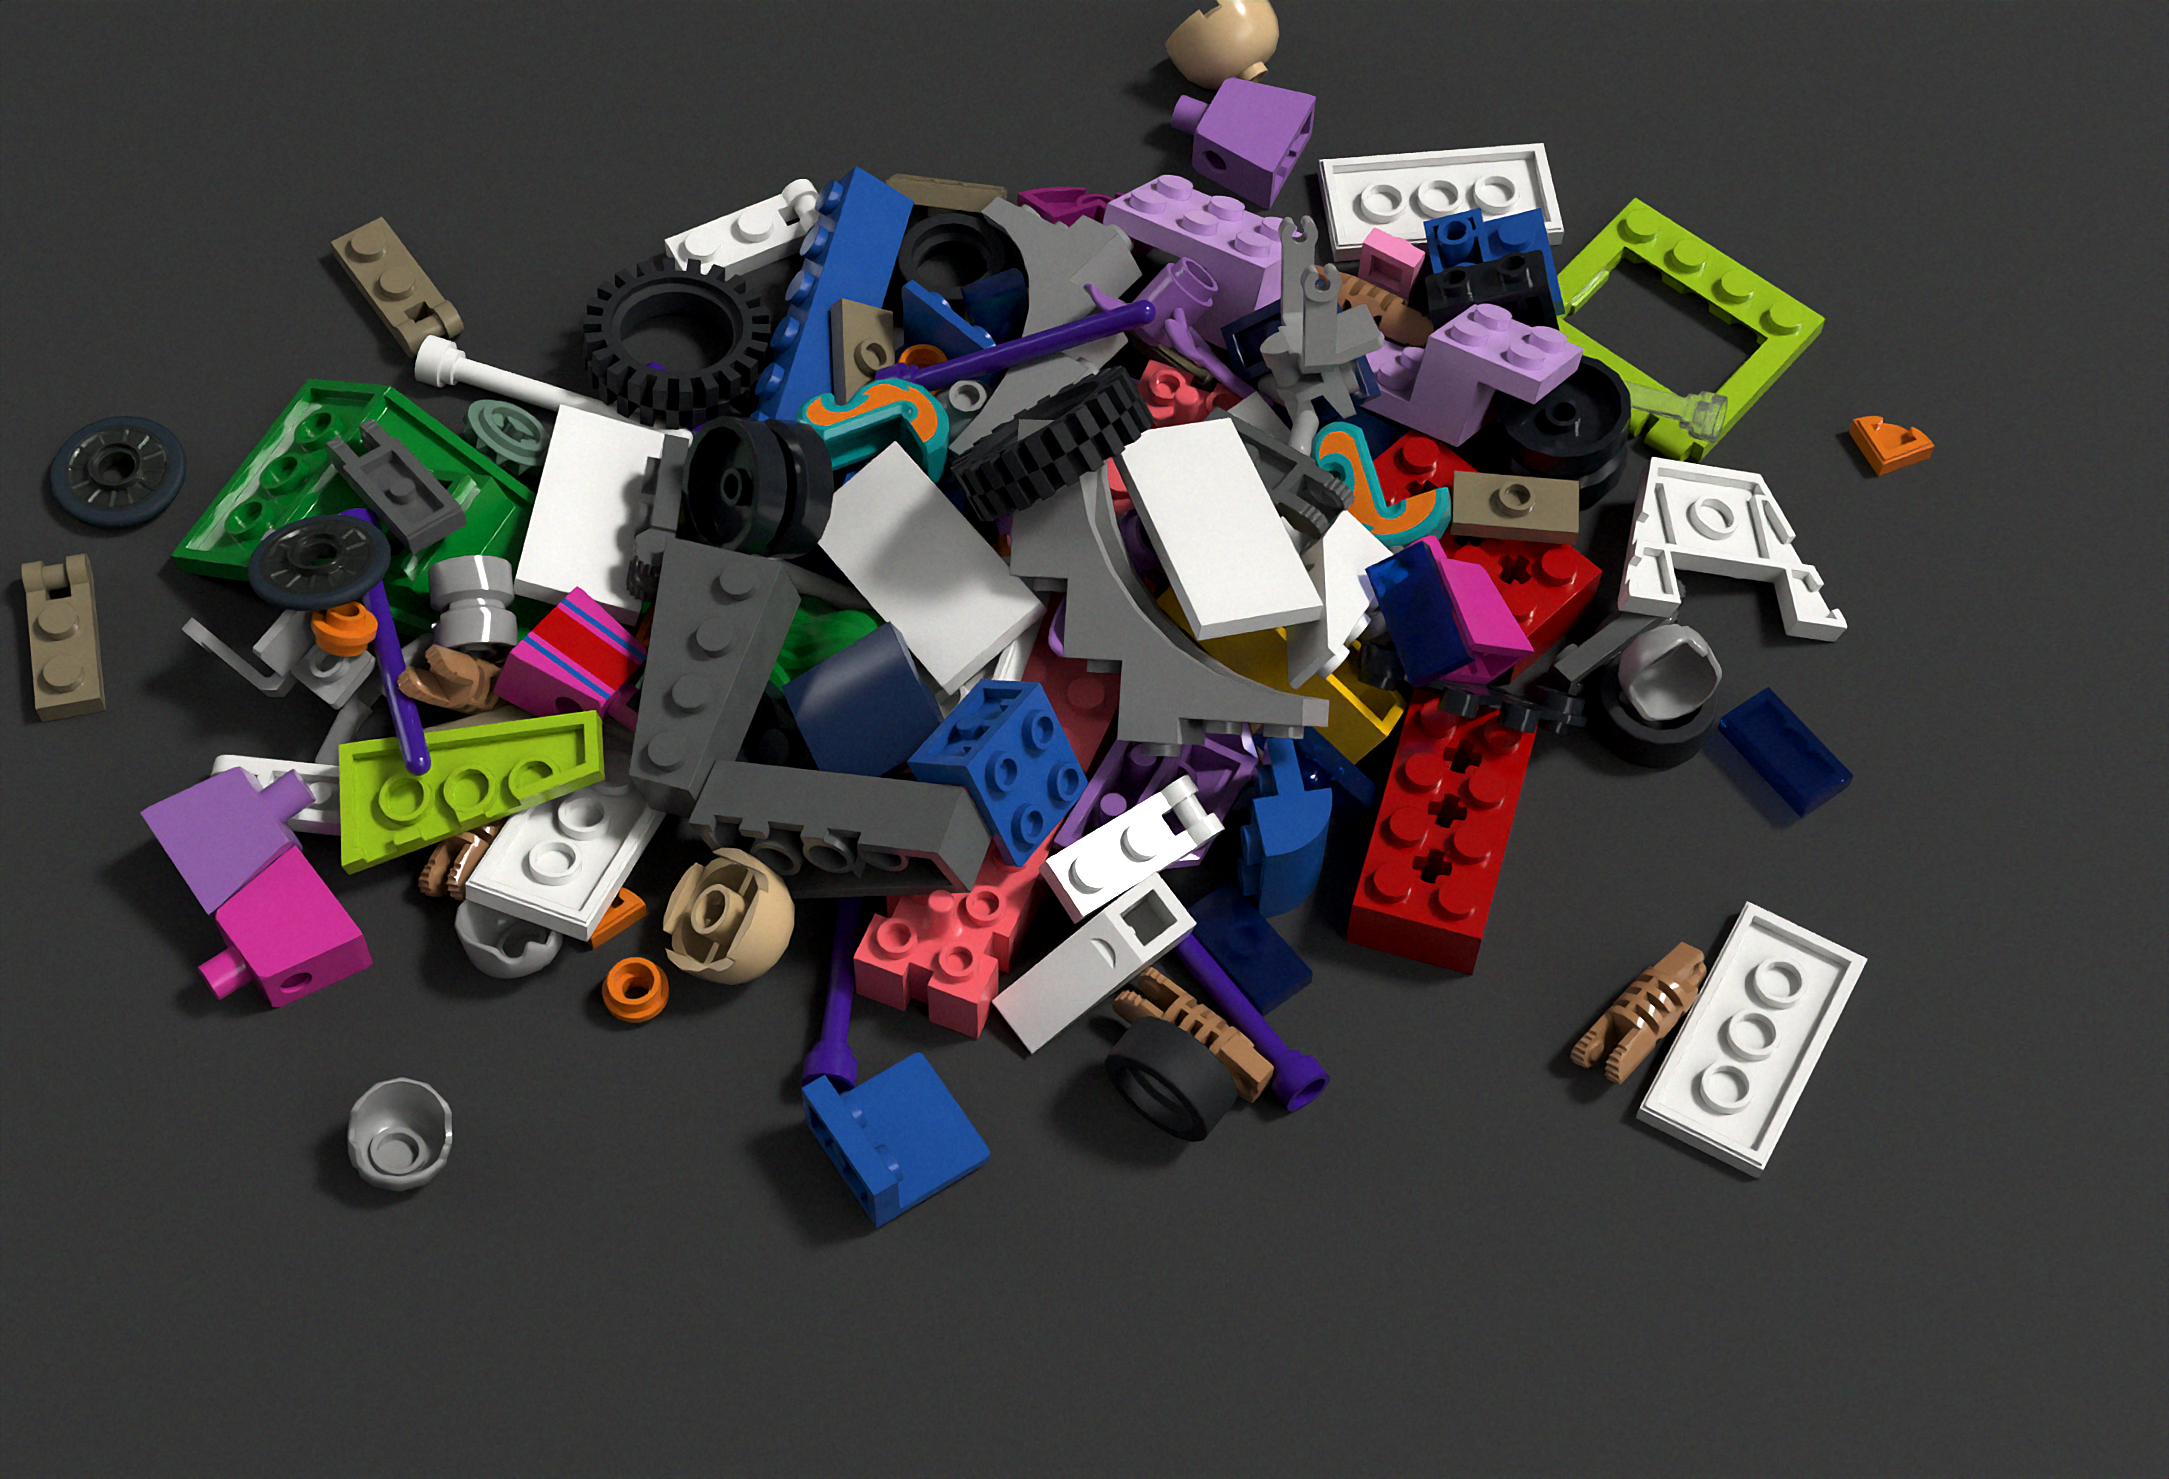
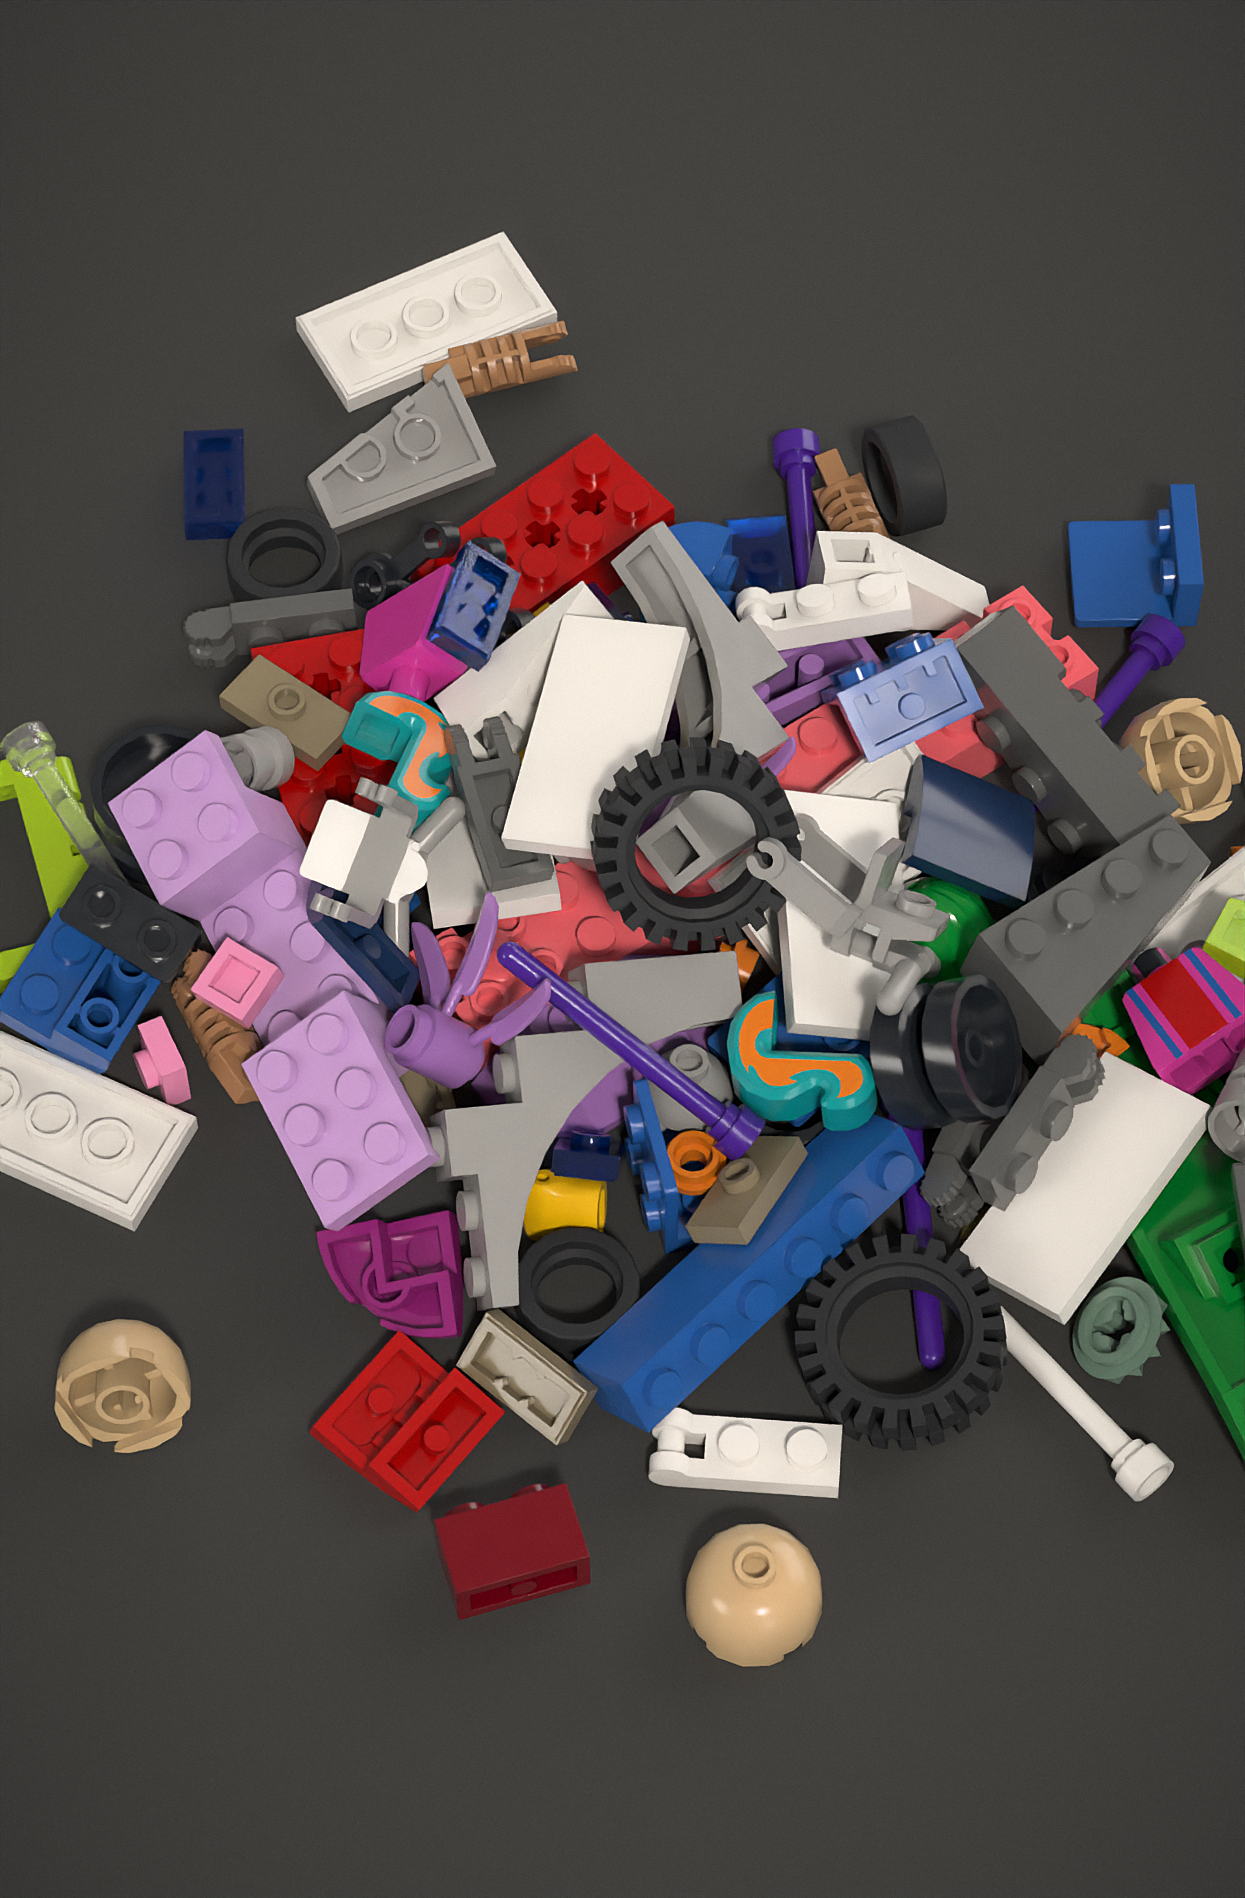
camera: 145 degrees left, 0 degrees up
(395, 286) = (1138, 1596): dark tan plate -> none
(682, 147) = (753, 1594): none -> tan cylinder
(871, 84) = (512, 1549): none -> dark red brick
(873, 510) = (898, 915): none -> light grey piece
(1013, 137) = (406, 1422): none -> red slope
(1247, 136) = (182, 1274): medium lavender torso -> none
(1380, 293) = (237, 983): none -> bright pink plate
(1504, 442) = (261, 757): none -> light grey wheel
(1642, 861) = (405, 459): none -> light grey wing
(1668, 672) = (276, 539): light grey hair -> none
(1720, 526) = (118, 671): white wing -> none

